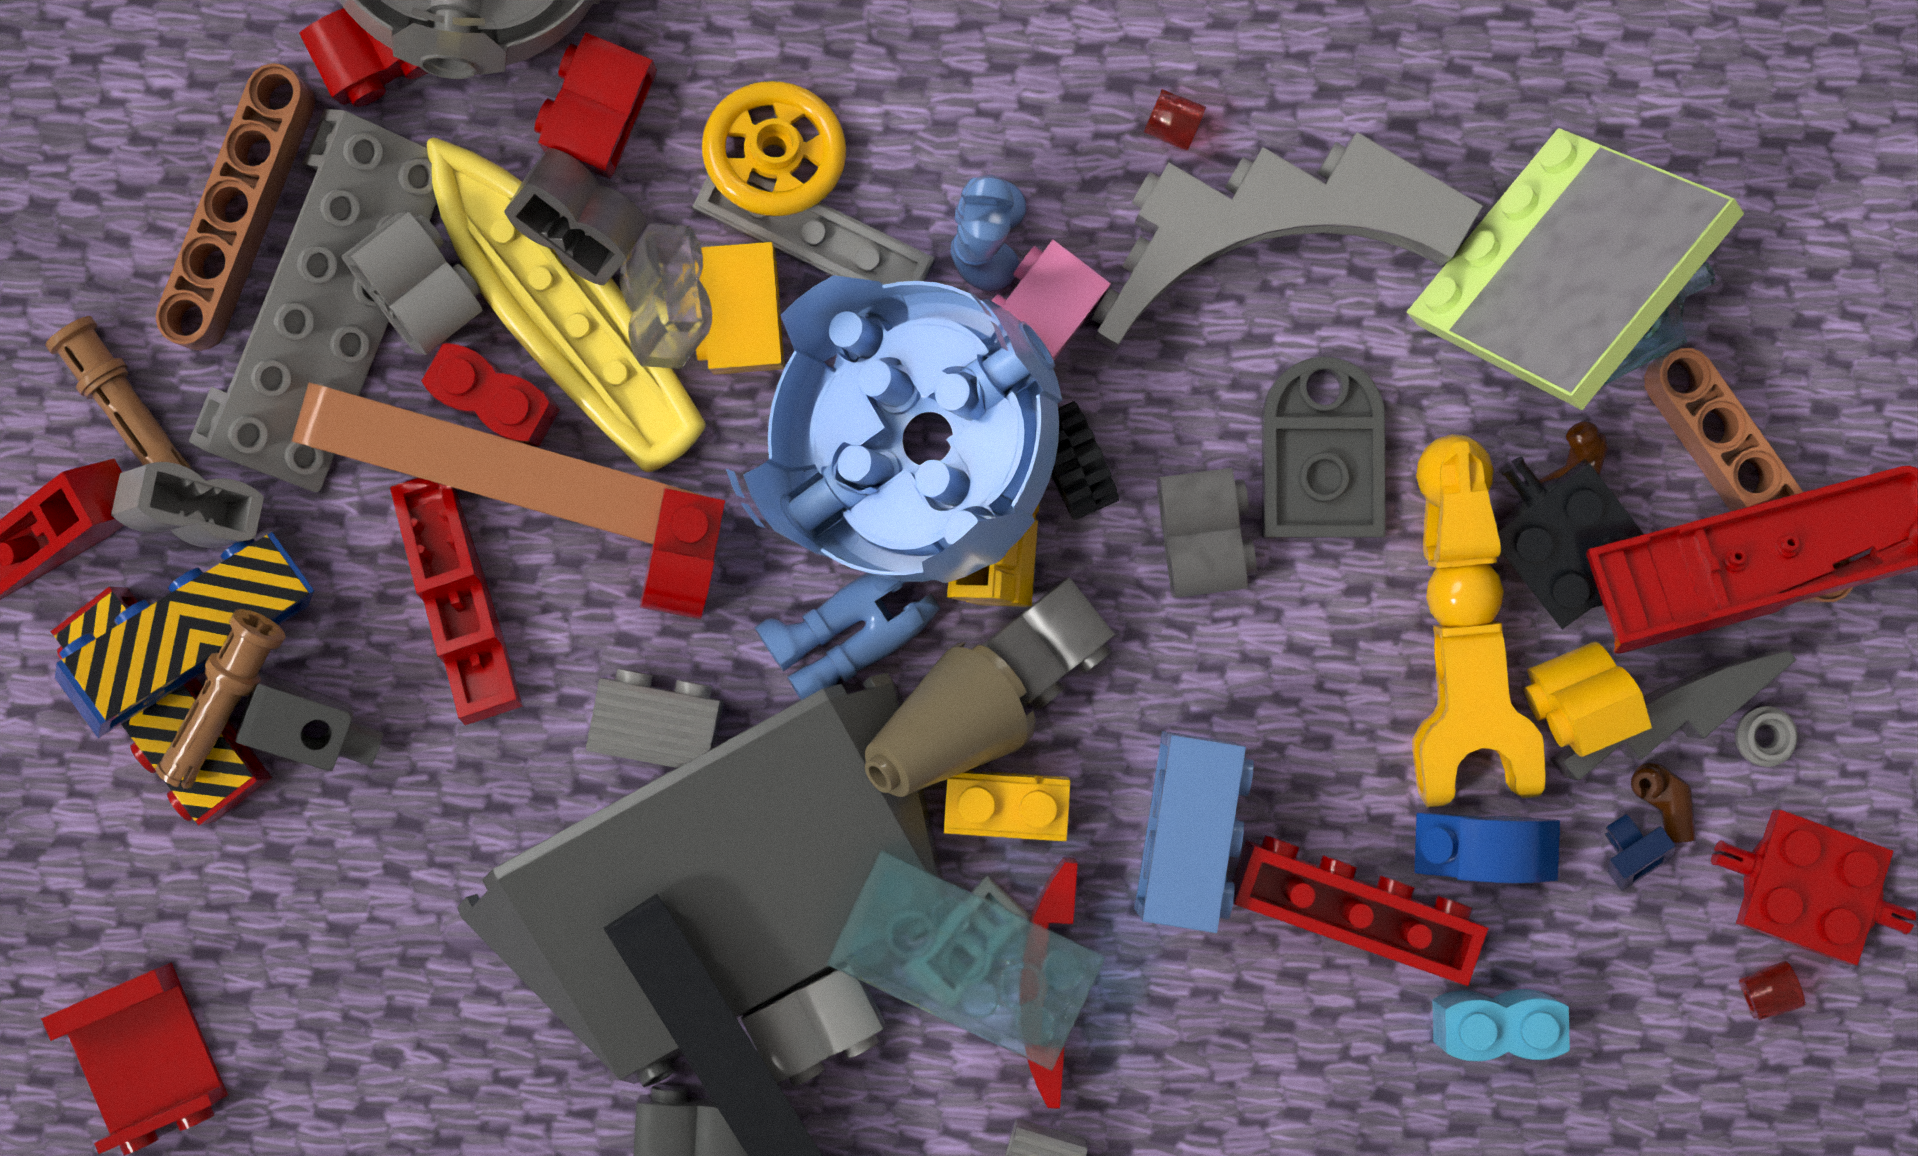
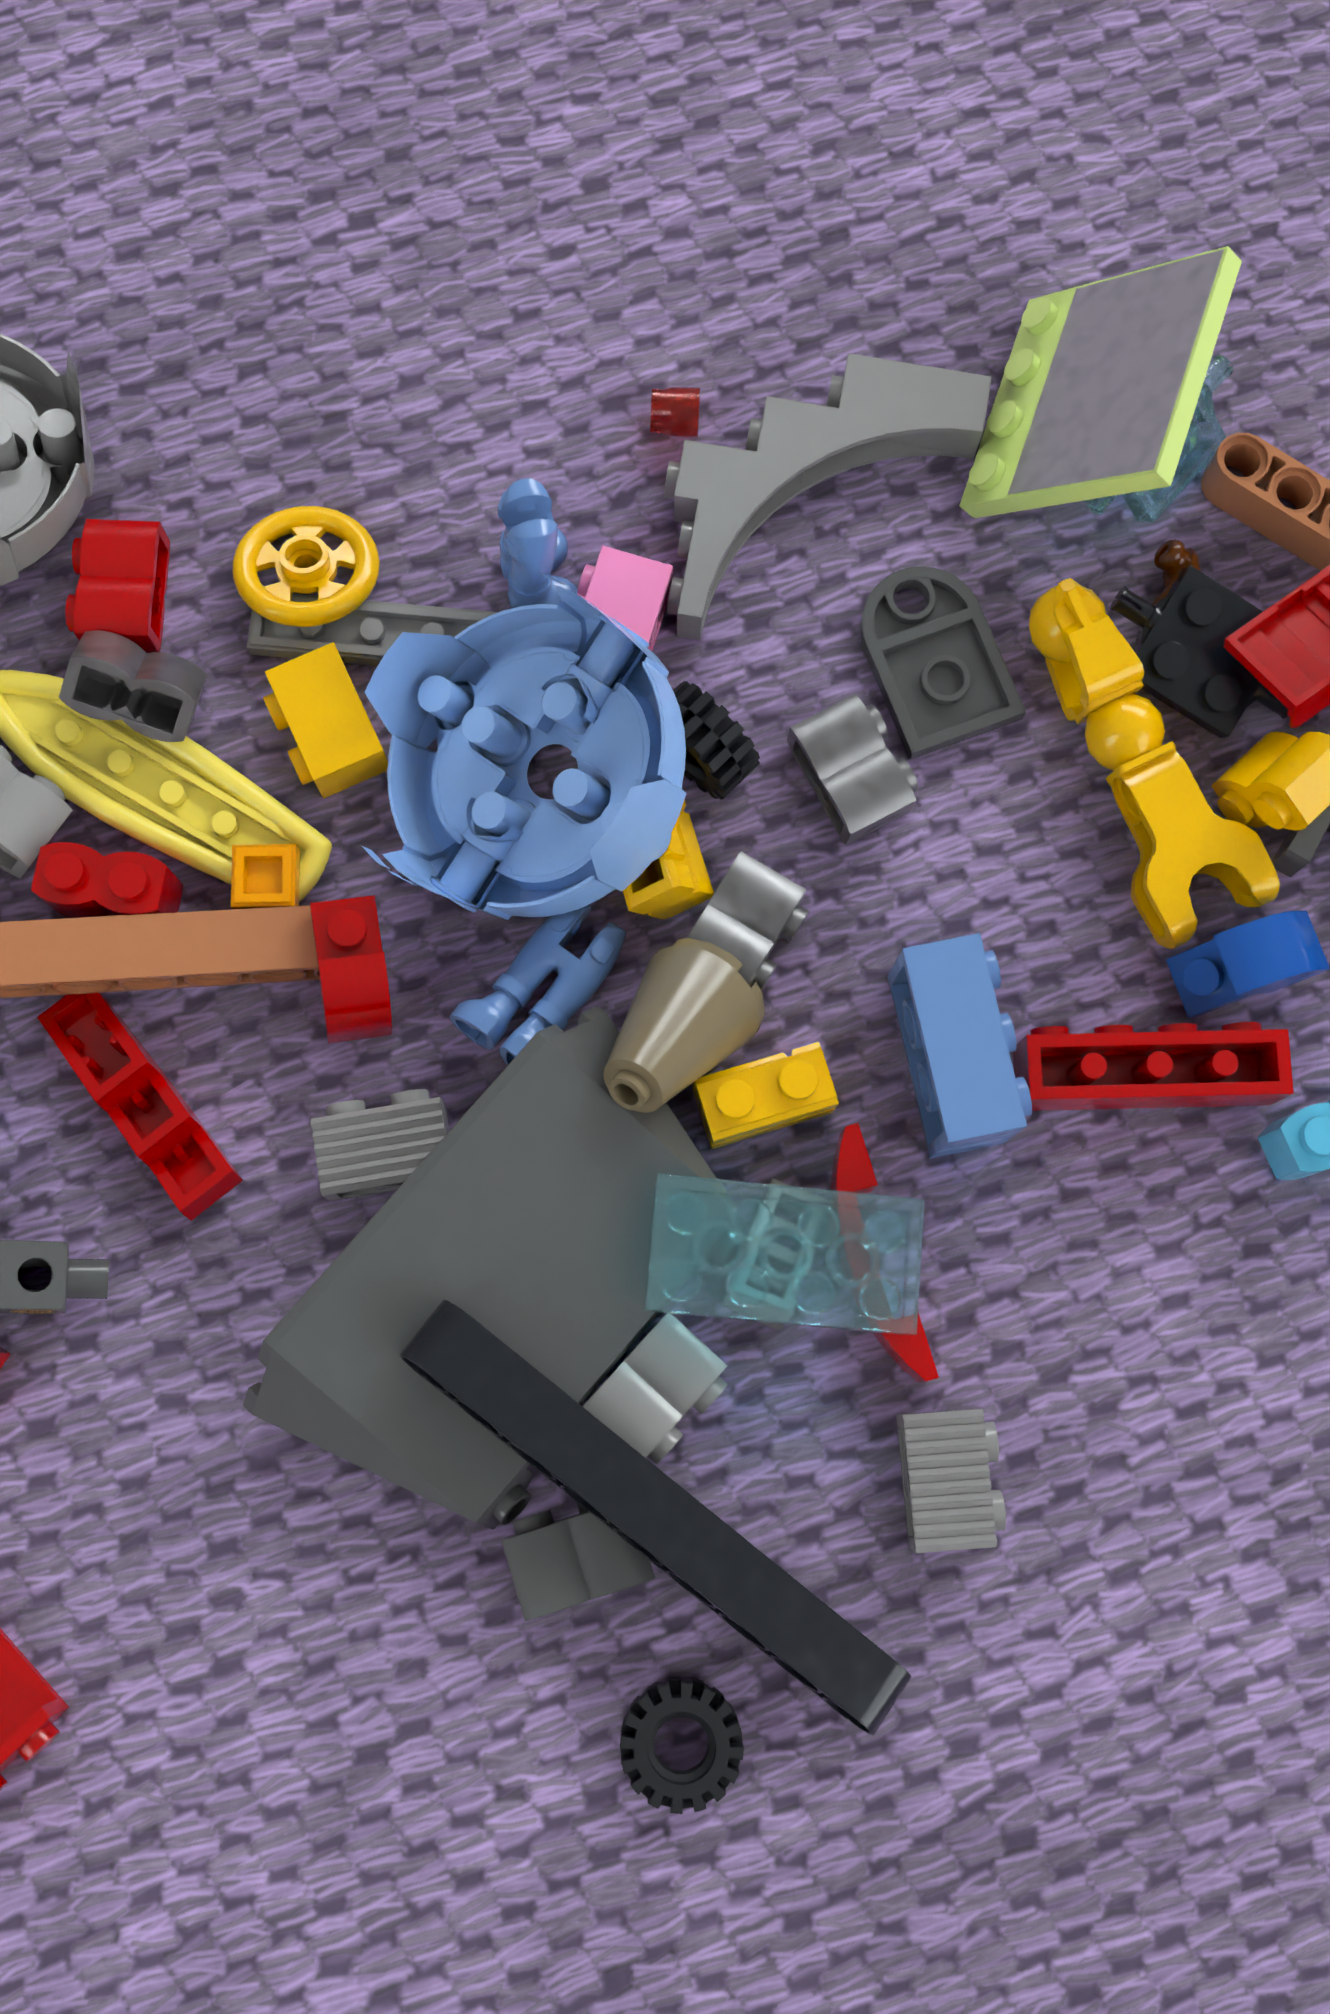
camera: 20 degrees left, 10 degrees down
(634, 441) = (265, 876): none -> light orange tile
(665, 296) = (247, 727): clear brick -> none

